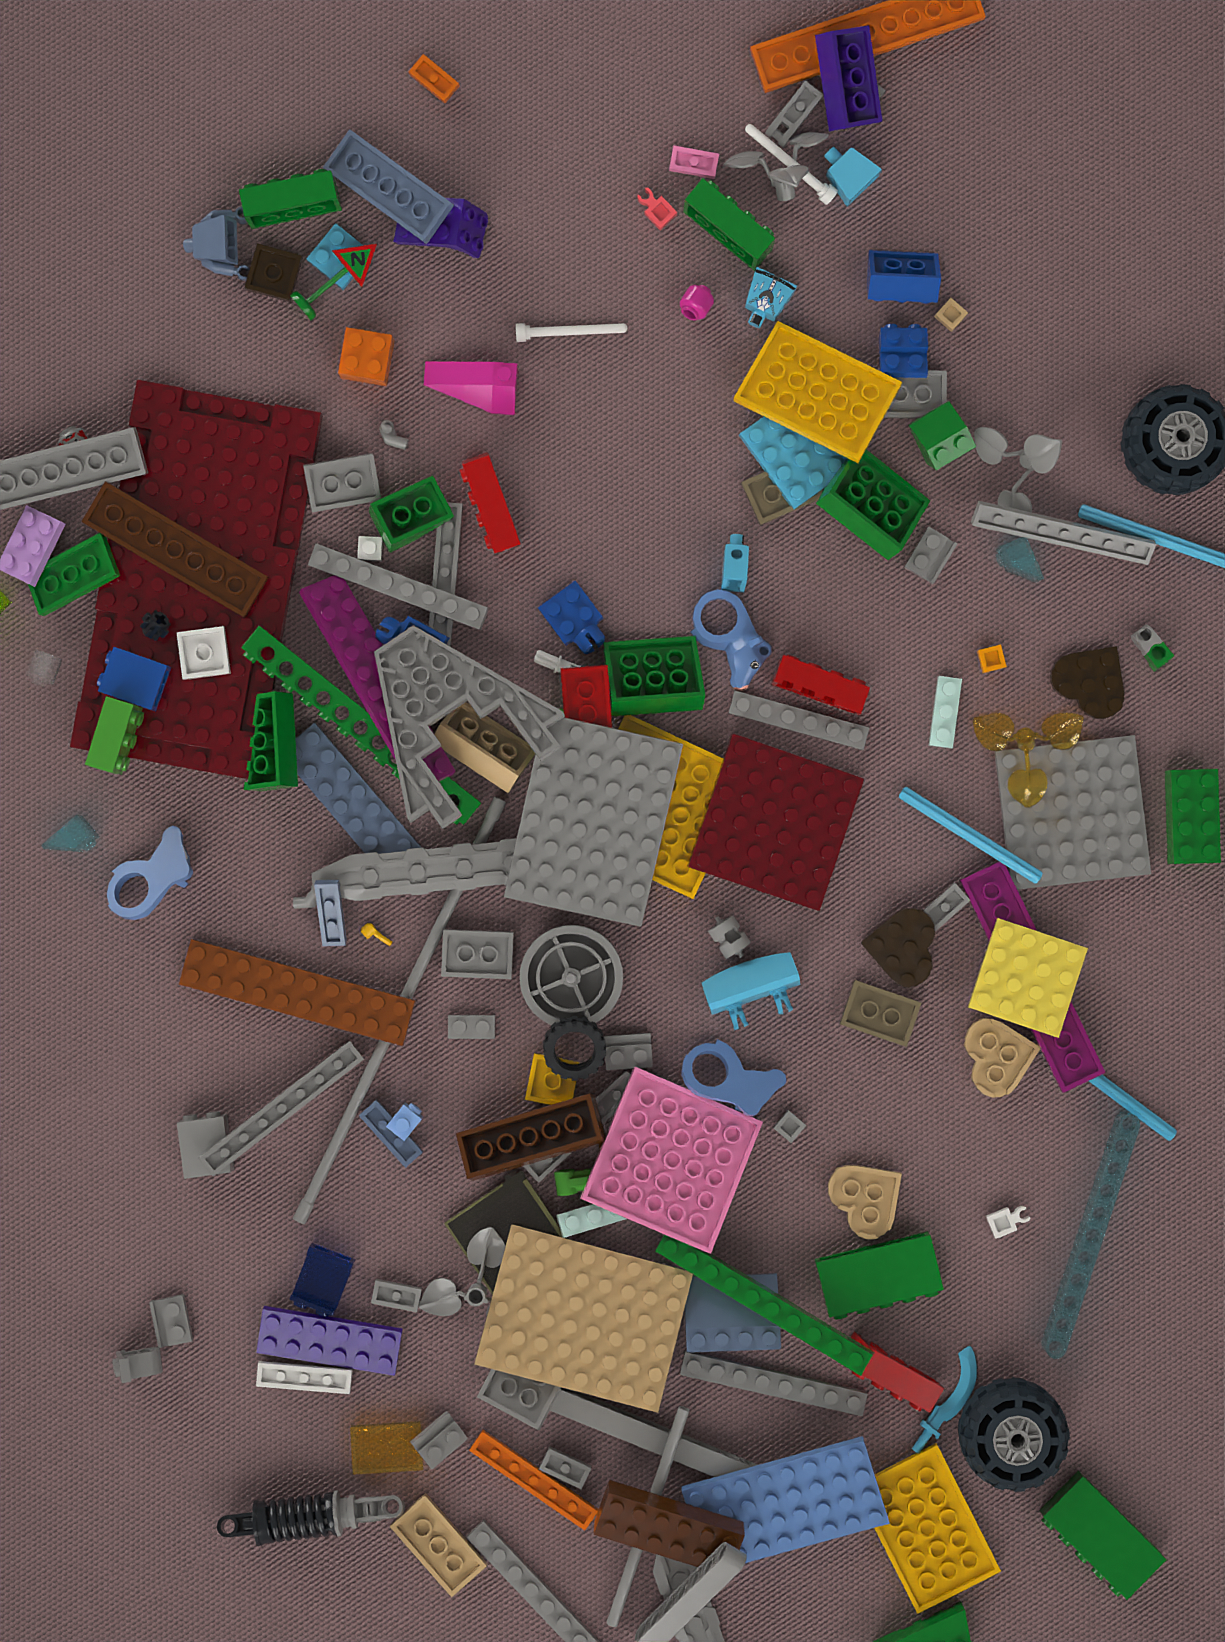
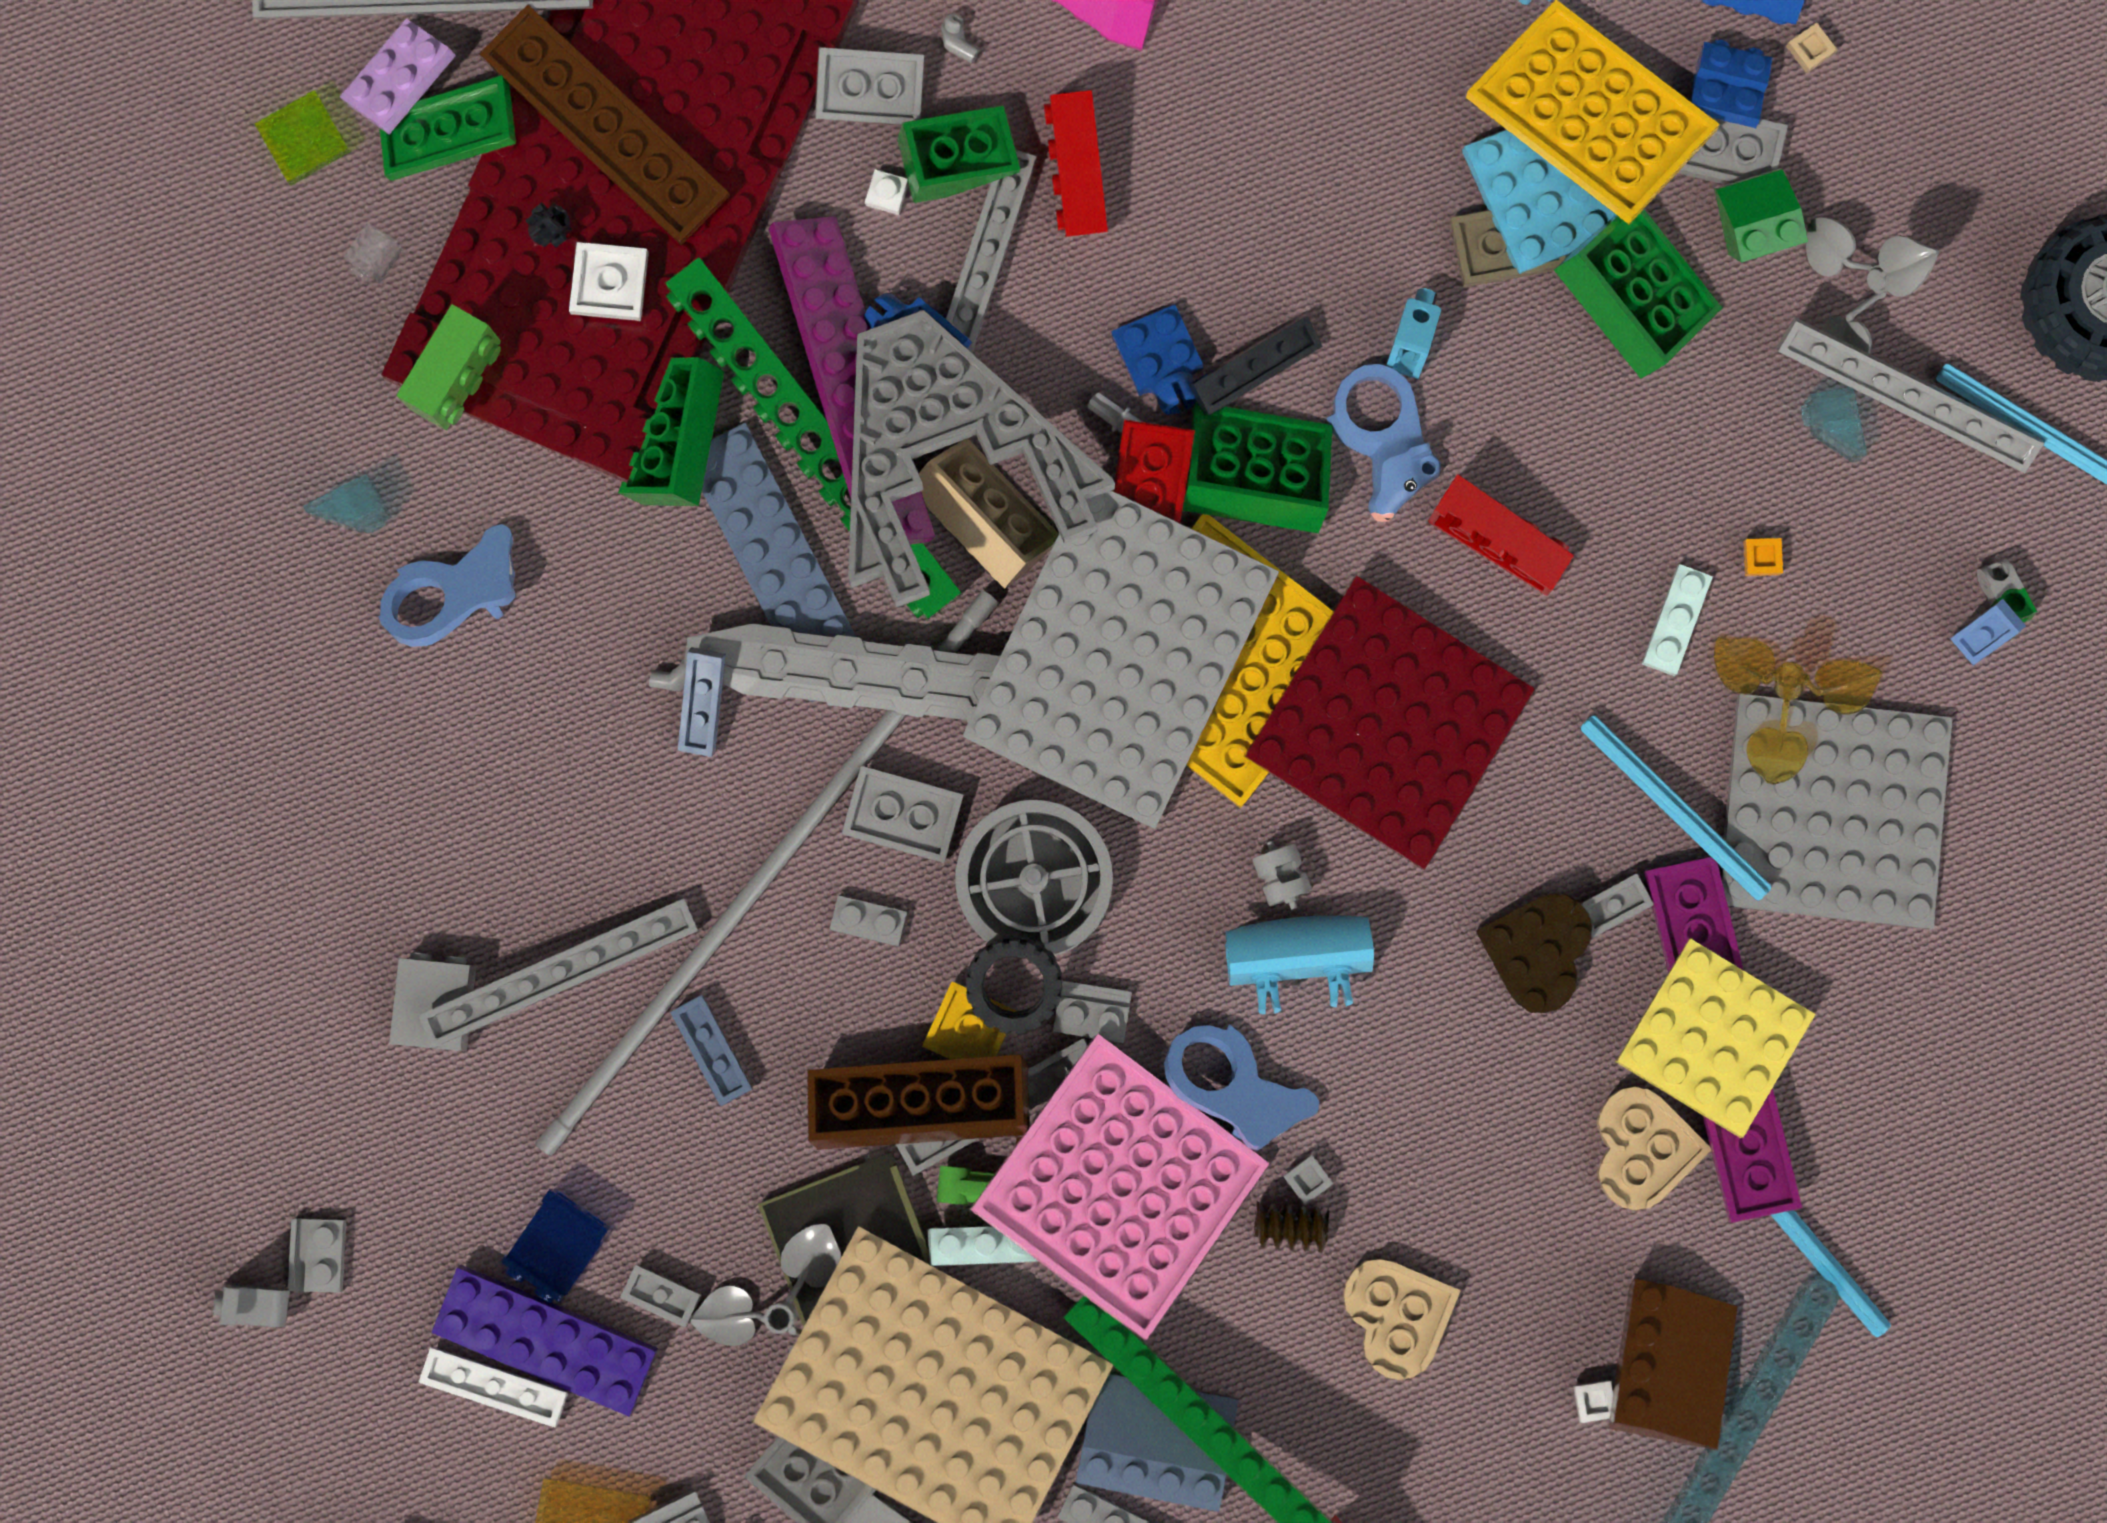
camera: 20 degrees right, 5 degrees down
(133, 678) = (499, 293): blue brick -> none
(297, 992) = (624, 809): dark orange plate -> none
(369, 930) = (752, 743): yellow hand -> none
(398, 586) = (915, 254): light grey plate -> none
(405, 1120) = (737, 1036): light blue bracket -> none
(636, 609) = (1255, 365): none -> black plate
(785, 1159) = (1291, 1227): none -> dark brown piece
(798, 720) = (1457, 582): light grey plate -> none
(879, 1275) = (1392, 1437): green brick -> none
(880, 1013) = (1482, 1042): dark tan plate -> none
(930, 555) = (1705, 387): light grey plate -> none
(1045, 1190) = (1673, 1365): none -> reddish brown slope
(1092, 680) = (1905, 622): dark brown plate -> none
(1145, 676) = (1988, 632): none -> medium blue plate
(1192, 816) = (2014, 856): green brick -> none

